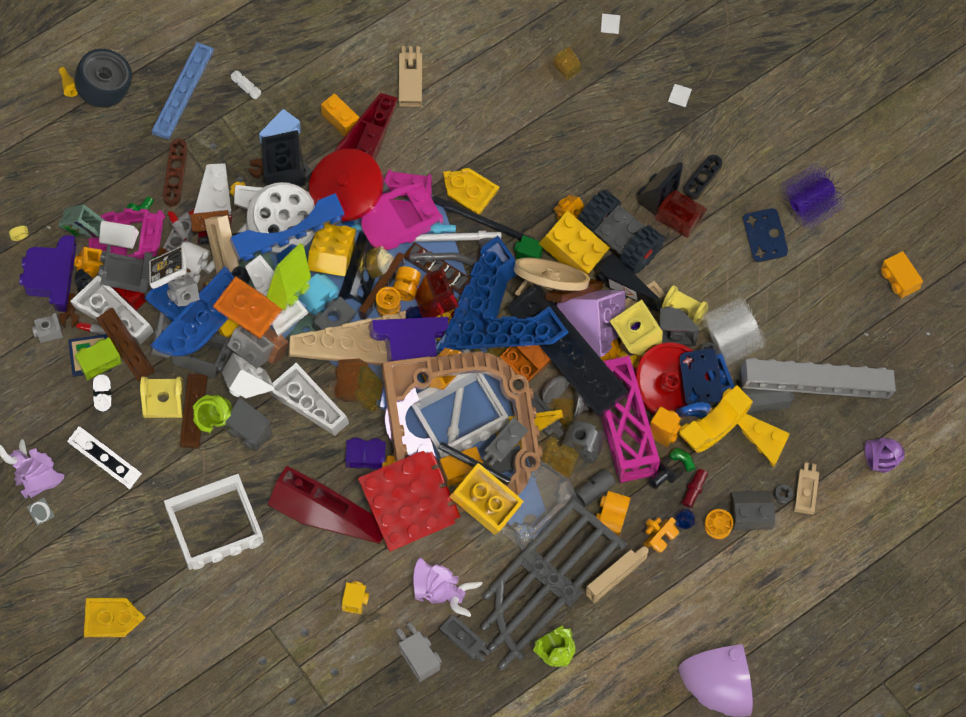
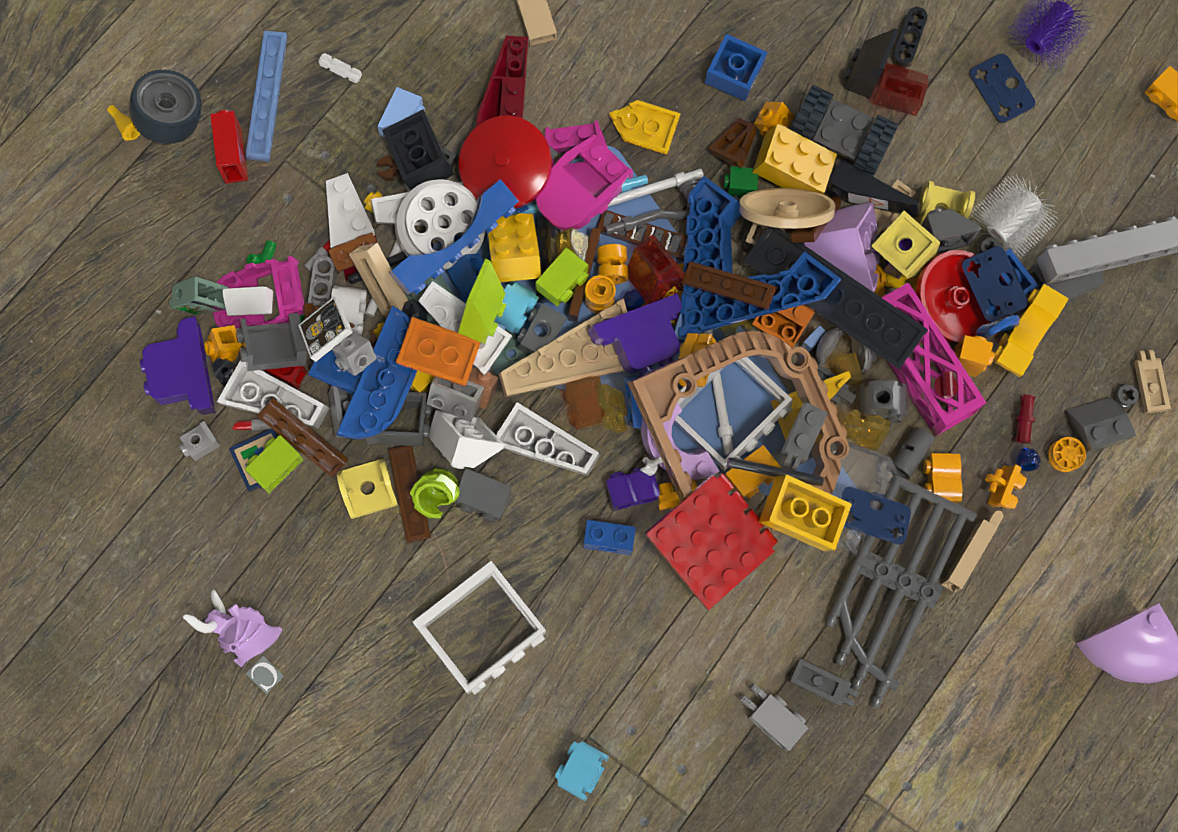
camera: 20 degrees left, 10 degrees up
(19, 233) = (125, 330): light yellow tile -> none
(69, 312) = (219, 412): reddish brown bar -> none
(102, 383) = (295, 515): piece -> none
(104, 457) = (319, 585): slope -> none
(110, 617) = (393, 785): yellow tile -> none
(141, 119) = (229, 146): none -> red brick
(175, 172) = (290, 200): copper beam -> none
(178, 226) = (318, 270): light grey piece -> none
(255, 644) = (581, 769): none -> medium azure brick
(321, 507) = (603, 572): dark red wedge -> none
(336, 481) = (609, 537): none -> blue brick
(339, 114) = (465, 76): light orange brick -> none
(354, 597) = (678, 672): yellow brick -> none
(361, 280) = (562, 277): none -> lime brick
(383, 437) = (651, 465): none -> white hand
(437, 585) = (774, 628): lavender helmet -> none
(450, 206) = (631, 153): black bar -> none
(486, 319) = (729, 285): none -> reddish brown tile
(533, 219) = (734, 143): none -> reddish brown wing
(541, 382) = (813, 339): none -> light blue tile
(542, 525) = (877, 522): none -> dark blue axle
(553, 163) = (735, 67): none -> blue brick
(556, 647) = (934, 663): lime helmet -> none
(631, 438) = (946, 385): none -> dark red plate
(665, 473) = (986, 413): black piece -> none
(684, 456) = (1000, 384): green arm -> none
(765, 437) = (1084, 333): yellow wing -> none

